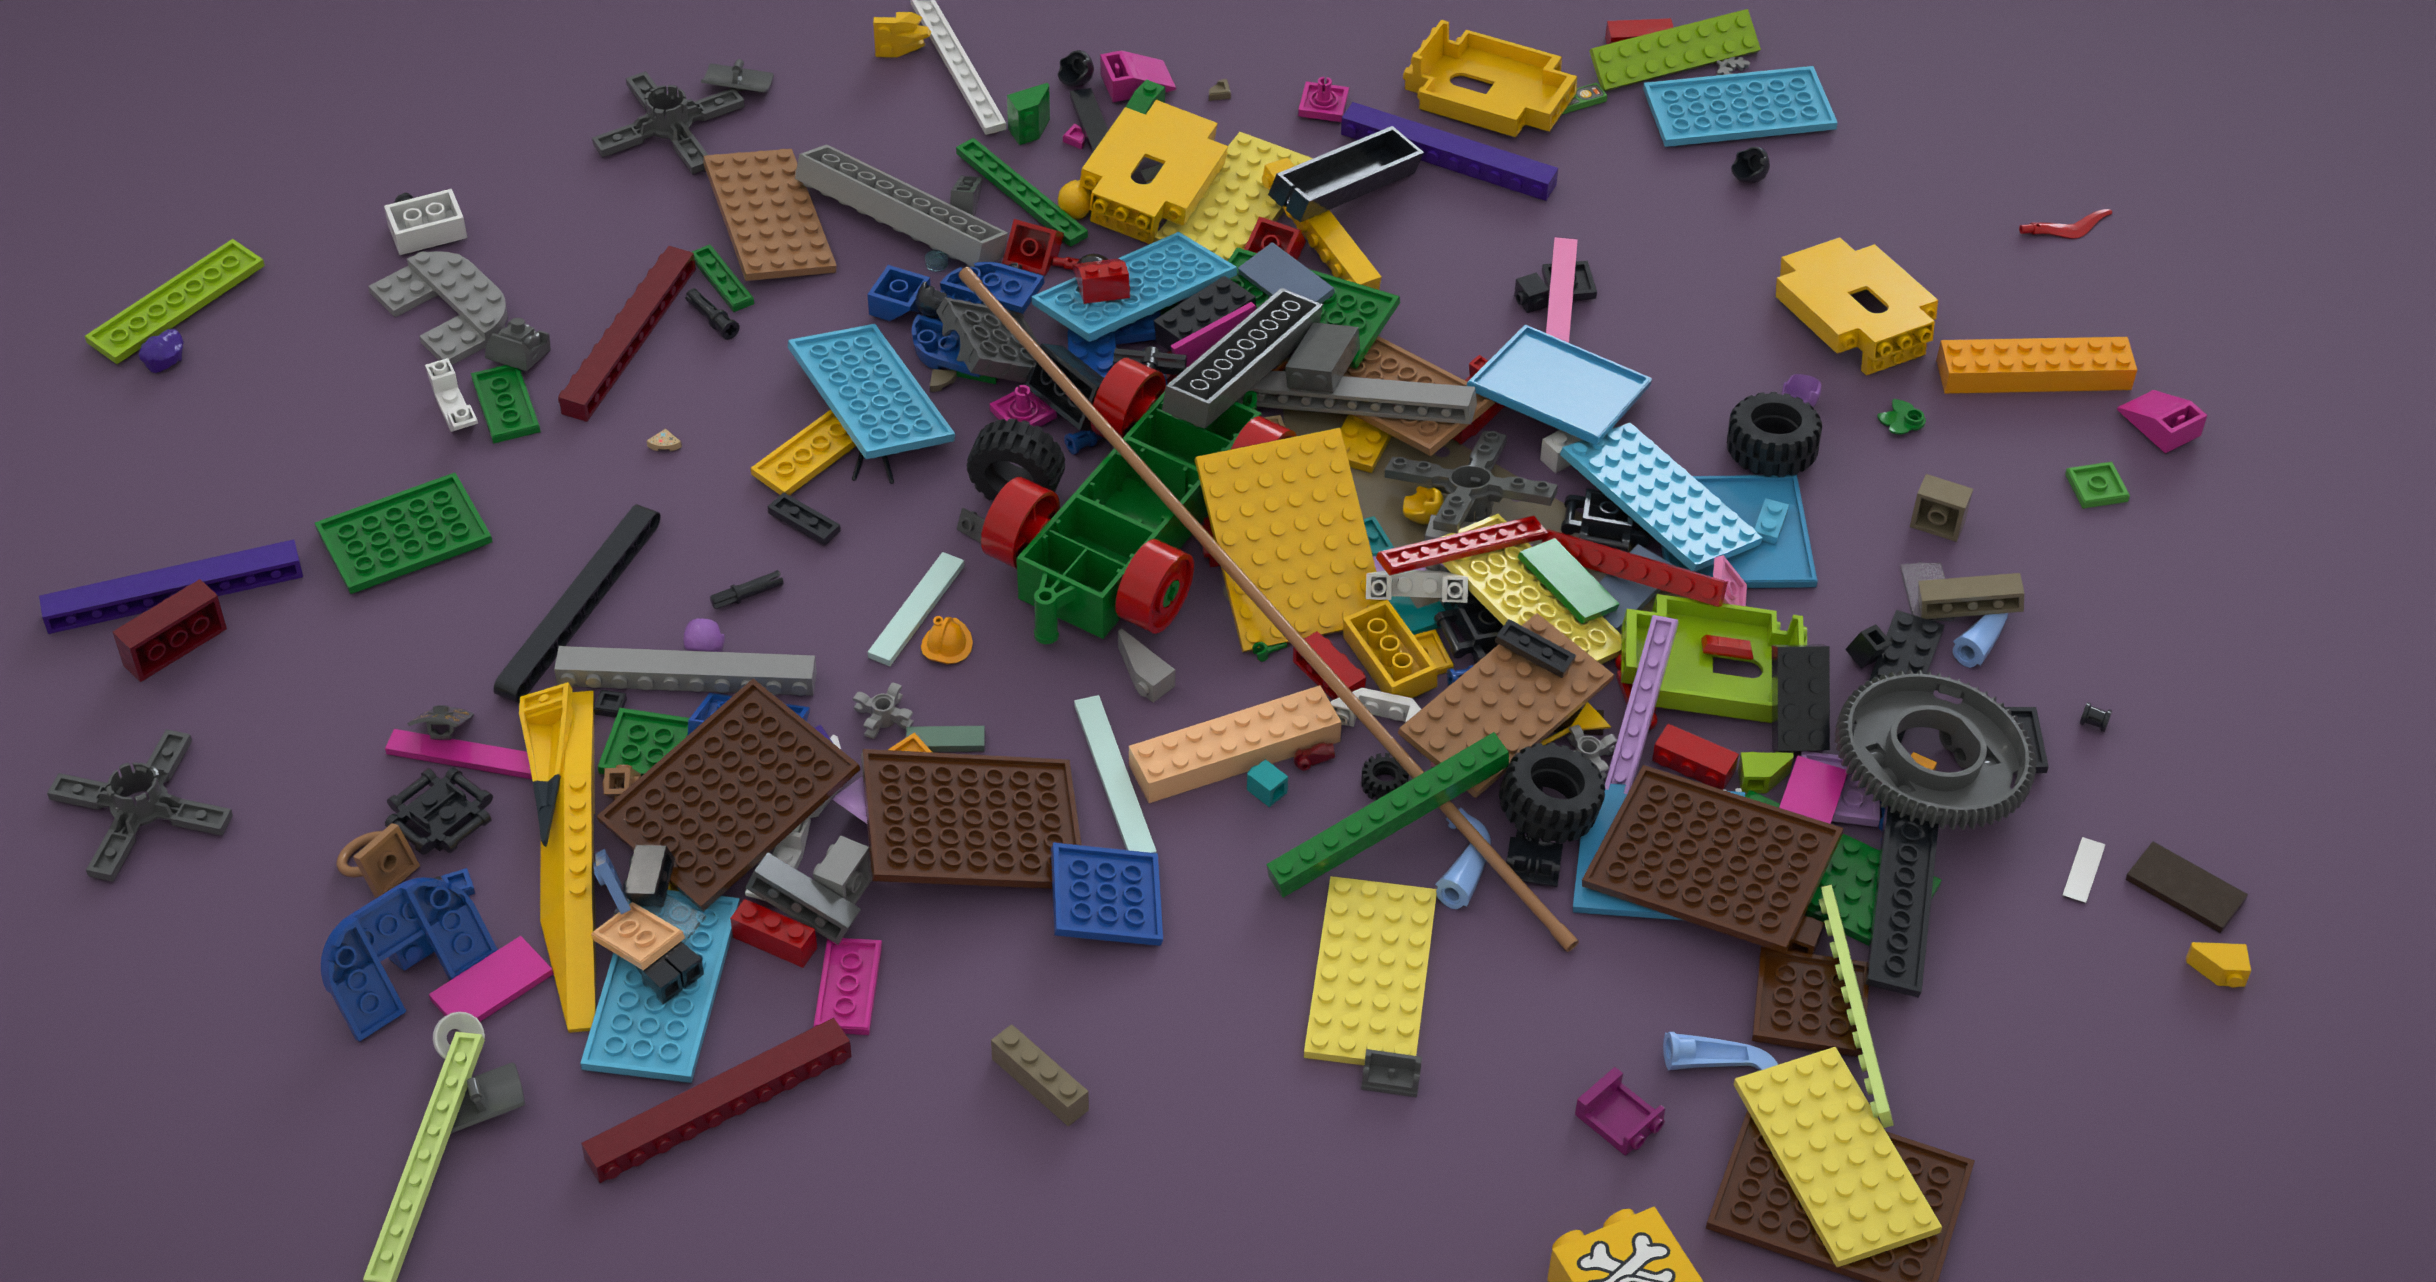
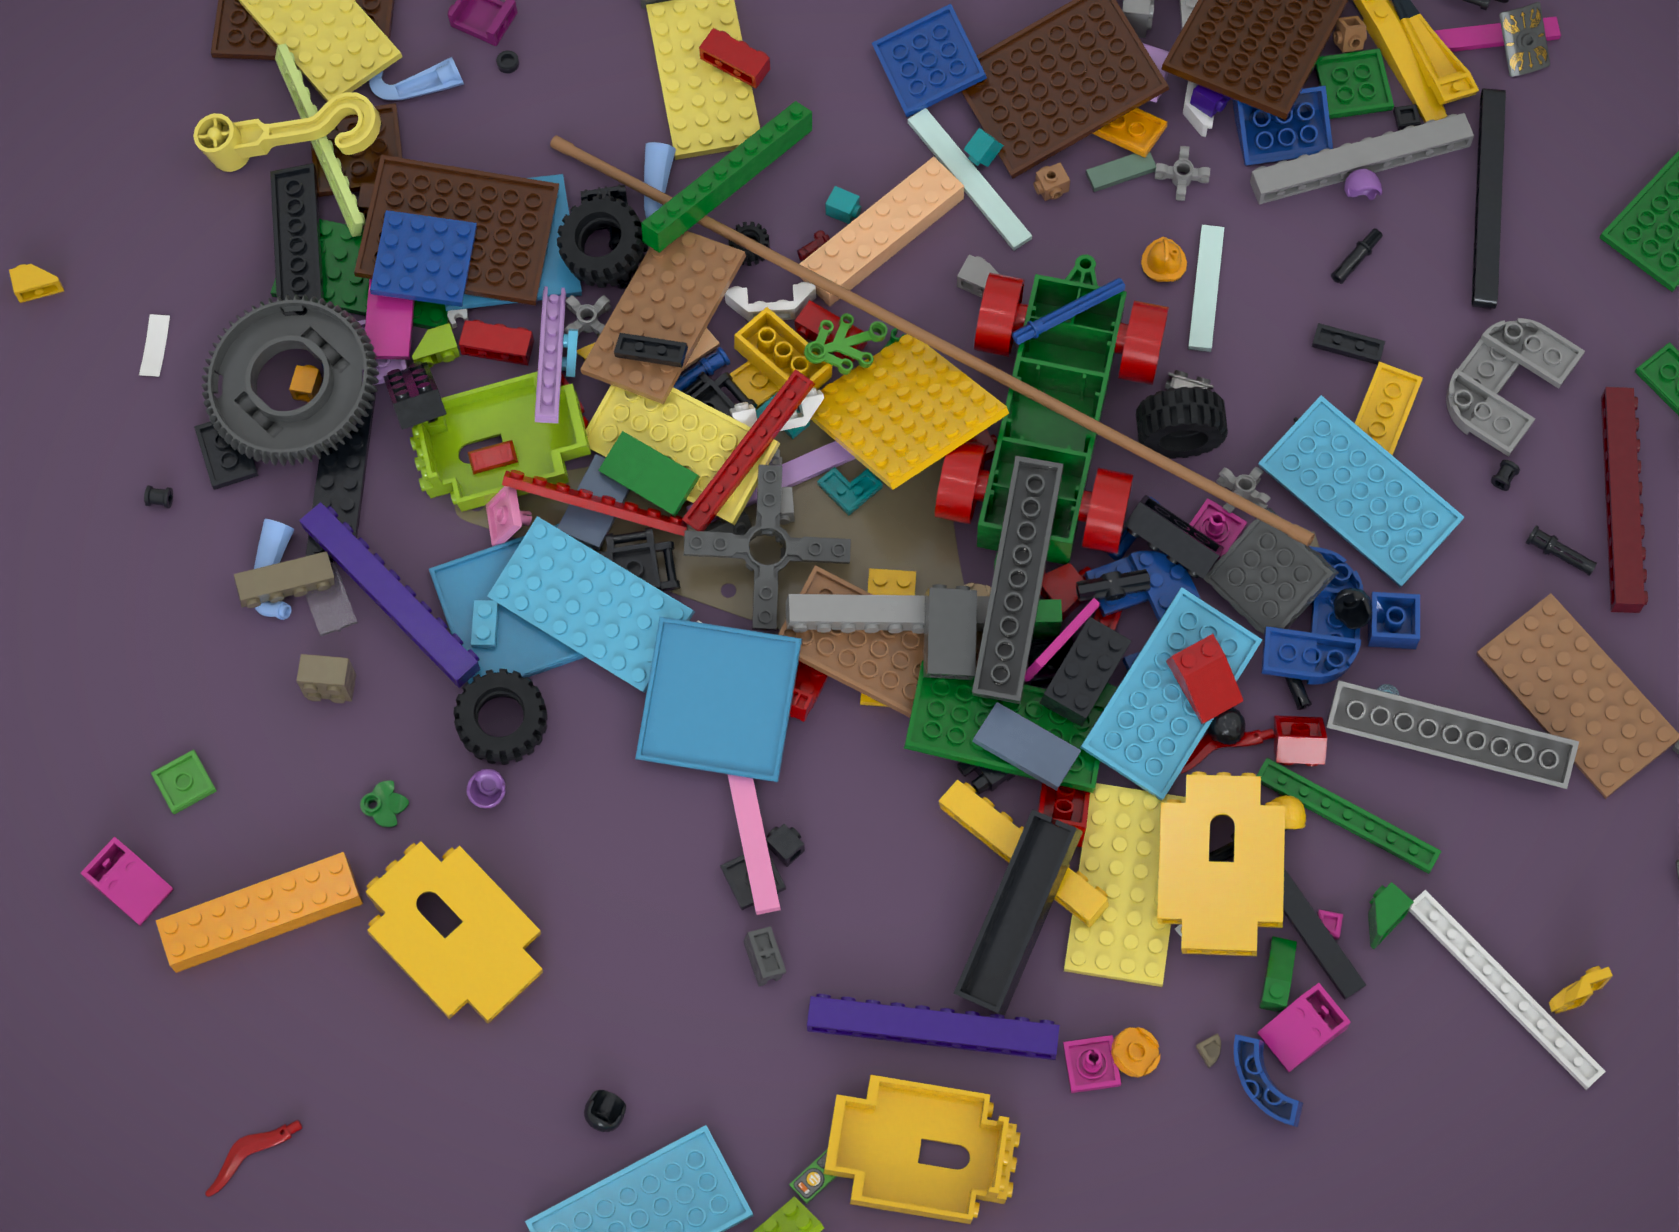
camera: 165 degrees right, 20 degrees up
(641, 472) = (1475, 385): none -> light grey plate
(664, 440) = (1517, 391): tan tile -> none
(722, 278) = (1579, 604): green tile -> none
(723, 378) = (1505, 475): none -> black bush
(966, 193) = (1399, 788): dark grey slope -> none
(975, 422) = (1244, 486): none -> light grey pin
(1029, 736) = (1051, 182): none -> medium nougat brick
(1076, 69) = (1371, 1012): black hair -> none
(1085, 548) = (1068, 311): none -> blue axle
(1087, 786) = (982, 148): none -> teal brick
(1191, 48) = (1259, 1086): none -> blue brick
(1283, 97) = (1135, 1052): none -> light orange tile
(1332, 952) = (735, 57): none -> red brick
(1351, 625) = (843, 344): none -> bright green plant
(1422, 504) = (806, 524): yellow hair -> none
(1578, 224) = (764, 955): none -> dark grey hinge
(1603, 1055) = (507, 62): none -> black tile
(1615, 713) = (570, 343): none -> medium azure plate
(1760, 823) = (423, 258): none -> blue plate
(1865, 558) = (390, 594): none -> dark purple brick
(1868, 646) = (368, 499): black brick -> none
(1965, 1027) = (233, 143): none -> light yellow piece
(2186, 887) = (67, 353): dark brown tile -> none

